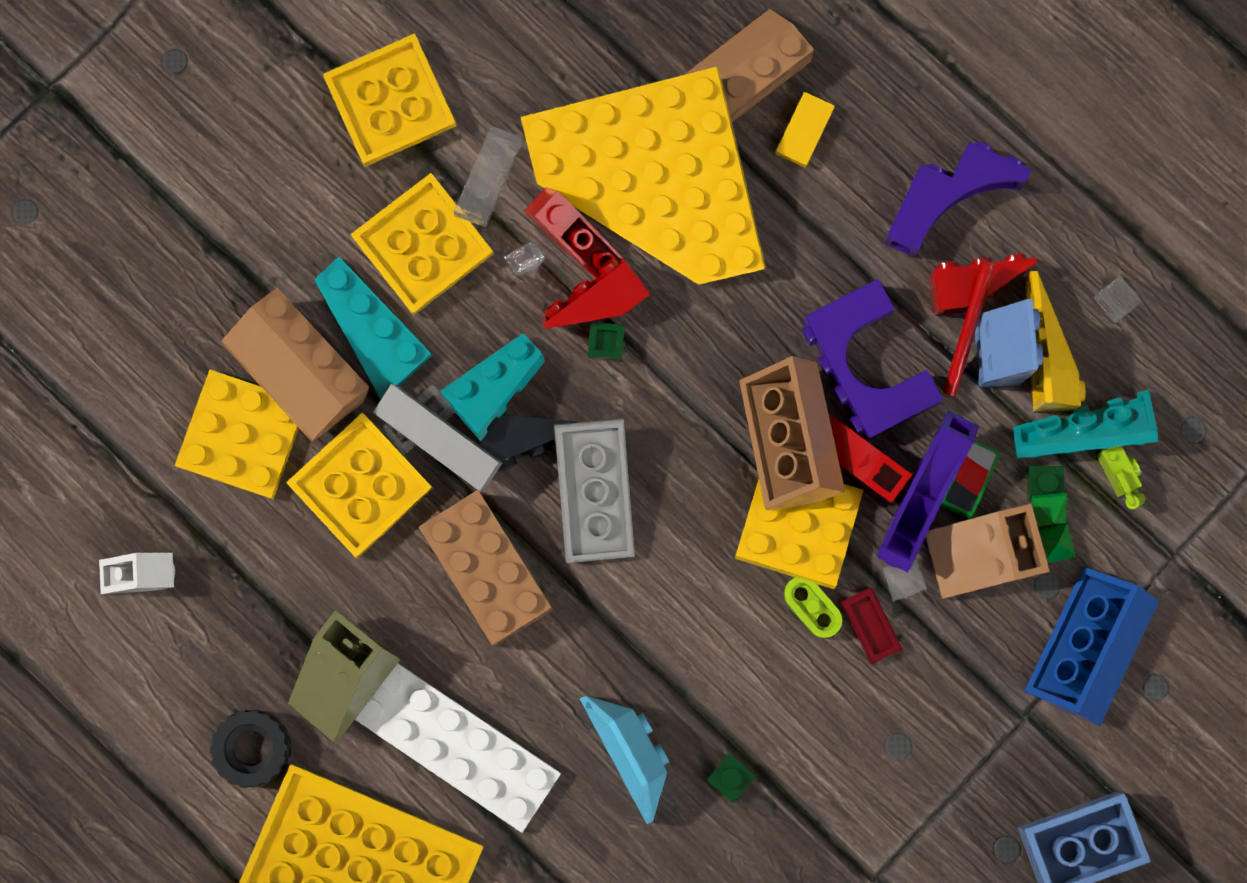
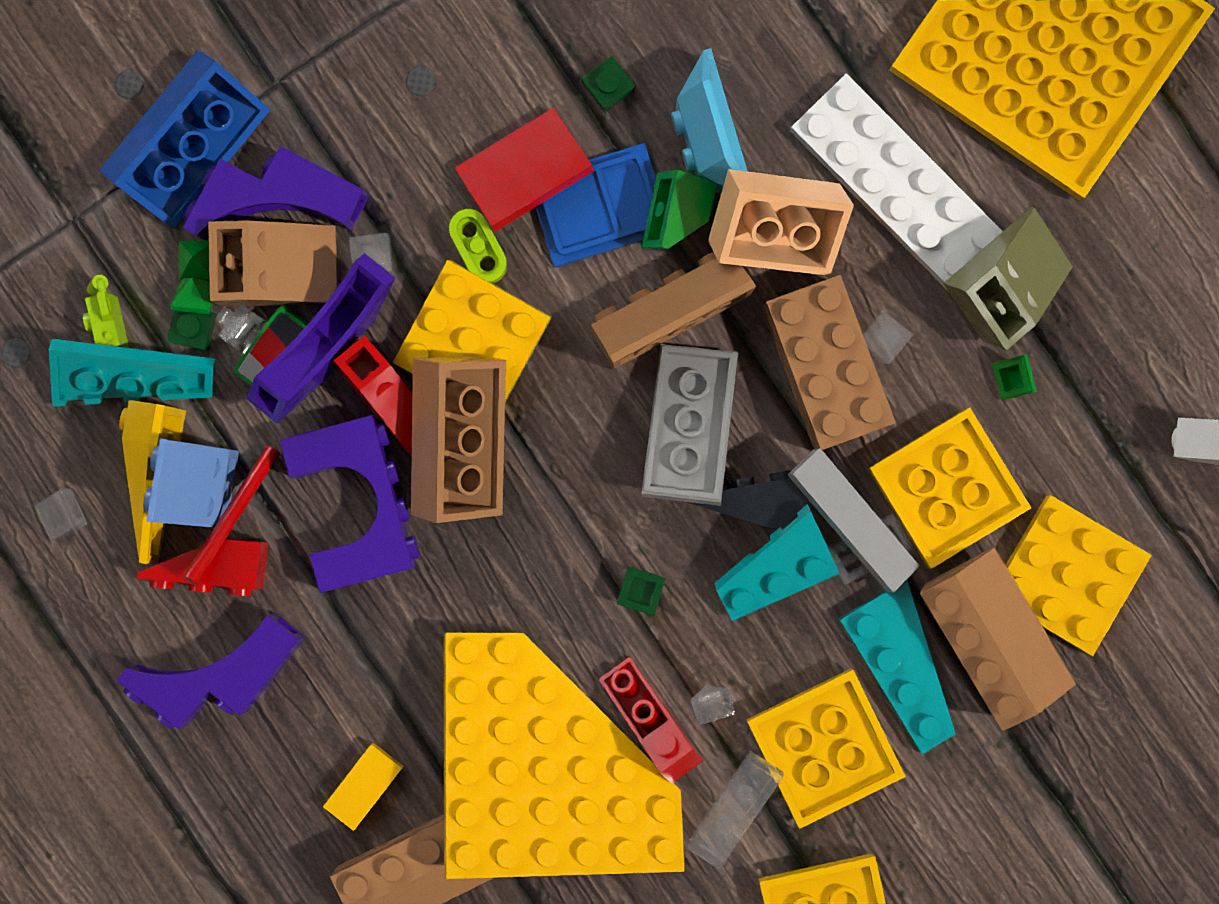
camera: 175 degrees left, 5 degrees up
(226, 736) = (1145, 203): black tyre -> none
(321, 593) = (1014, 377): none -> green slope
(440, 604) = (886, 338): none -> clear plate
(554, 677) = (779, 222): none -> light nougat brick
(606, 296) = (632, 640): red slope -> none
(632, 585) = (670, 309): none -> medium nougat slope
(645, 673) = (677, 208): none -> green slope
(715, 668) = (601, 209): none -> blue piece
(787, 683) = (524, 169): none -> red tile
(871, 625) = (419, 214): dark red tile -> none
(991, 625) = (287, 185): none -> dark purple arch
(1001, 491) = (240, 326): none -> clear tile

